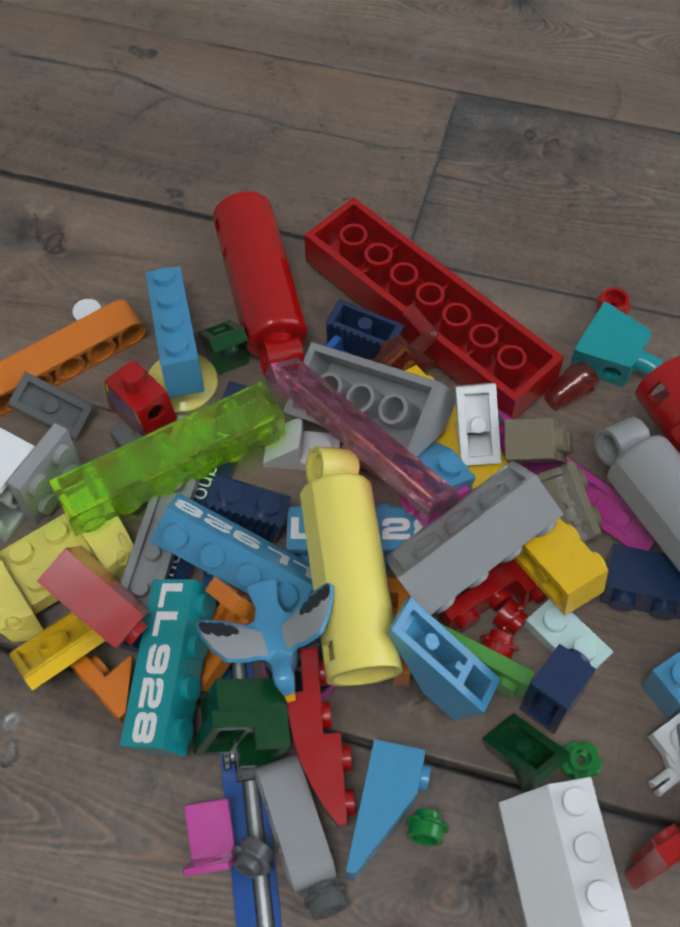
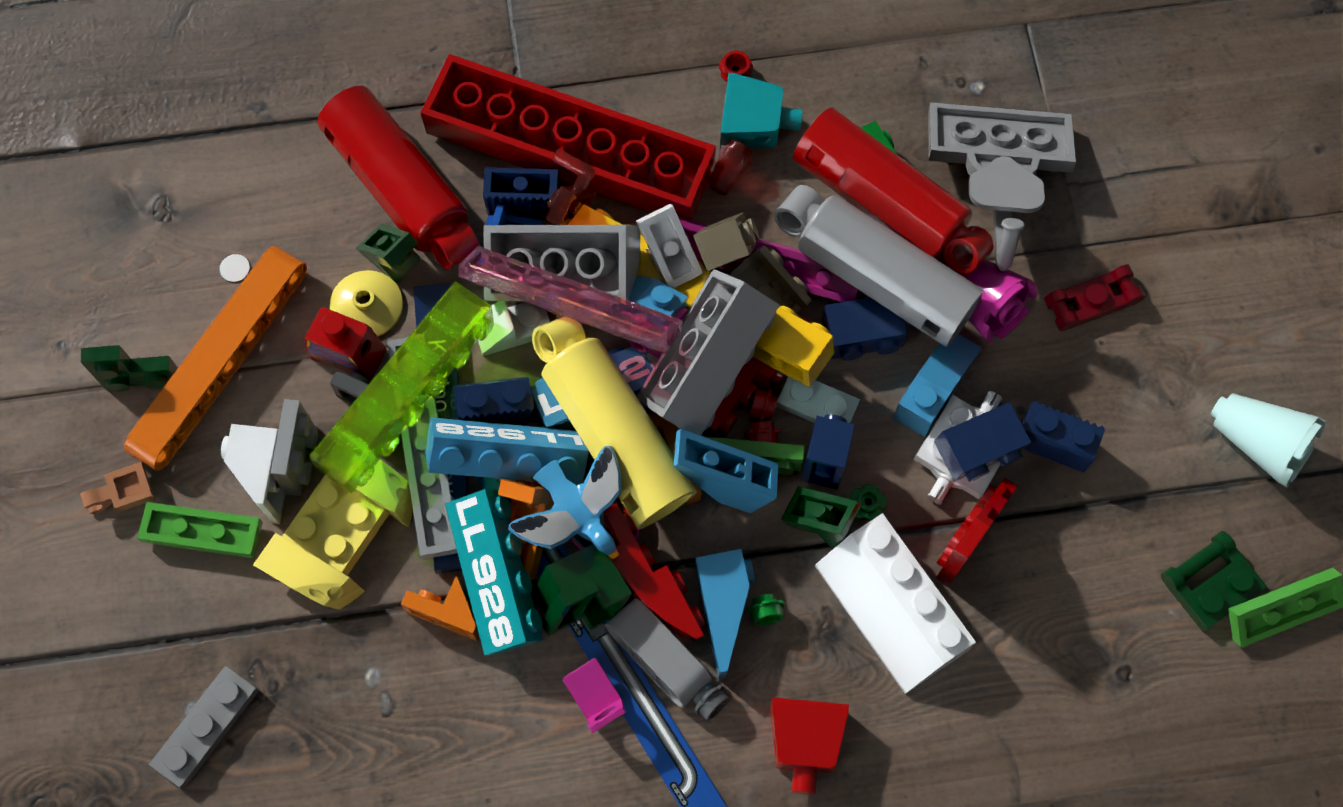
camera: 25 degrees left, 10 degrees up
(49, 405) = (257, 380): dark grey plate -> none
(54, 649) = (385, 598): yellow tile -> none
(95, 596) = (405, 540): red slope -> none
(174, 332) = (341, 260): dark azure brick -> none
(252, 857) = (637, 695): dark grey plate -> none

